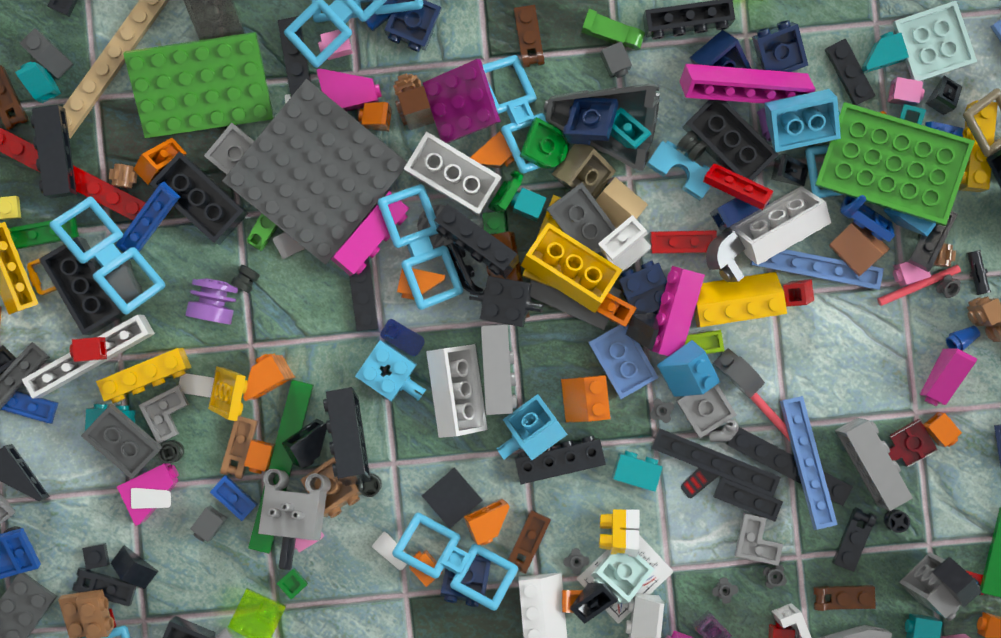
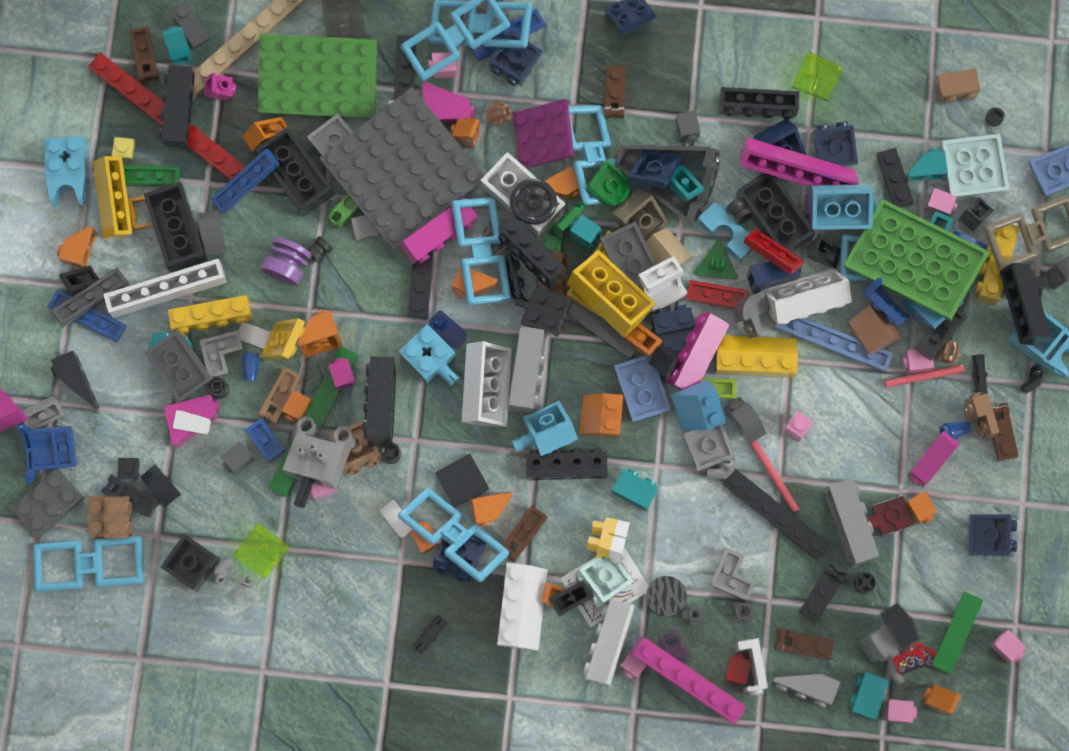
camera: 15 degrees right, 10 degrees down
(88, 349) = (169, 278): red brick -> none
(89, 122) = (219, 87): none -> dark pink brick
(107, 255) = (204, 203): medium azure bar -> none
(123, 176) = (231, 140): medium nougat gear -> none
(200, 420) = (250, 365): none -> blue cone
(292, 583) = (300, 527): green plate -> none
(299, 412) = (342, 374): none -> dark pink brick
(306, 444) = (341, 404): black slope -> none
(414, 107) = (501, 128): reddish brown brick -> none
(448, 181) = (543, 214): none -> black plate
(576, 567) = (564, 554): dark grey plate -> none
(612, 30) = (689, 101): bright green leg -> none
(656, 414) = (662, 442): dark grey plate -> none
(676, 206) = (716, 264): none -> green piece
(691, 576) = (666, 596): none -> dark grey tile
(697, 482) = (691, 511): sticker -> none
(715, 462) = (708, 496): black plate -> none
(748, 499) = (731, 535): black plate -> none
(797, 368) = (798, 426): none -> bright pink brick
(798, 292) = (812, 358): red brick -> none
(808, 463) = (792, 511): medium blue plate -> none
(949, 286) = (955, 381): dark grey plate -> none

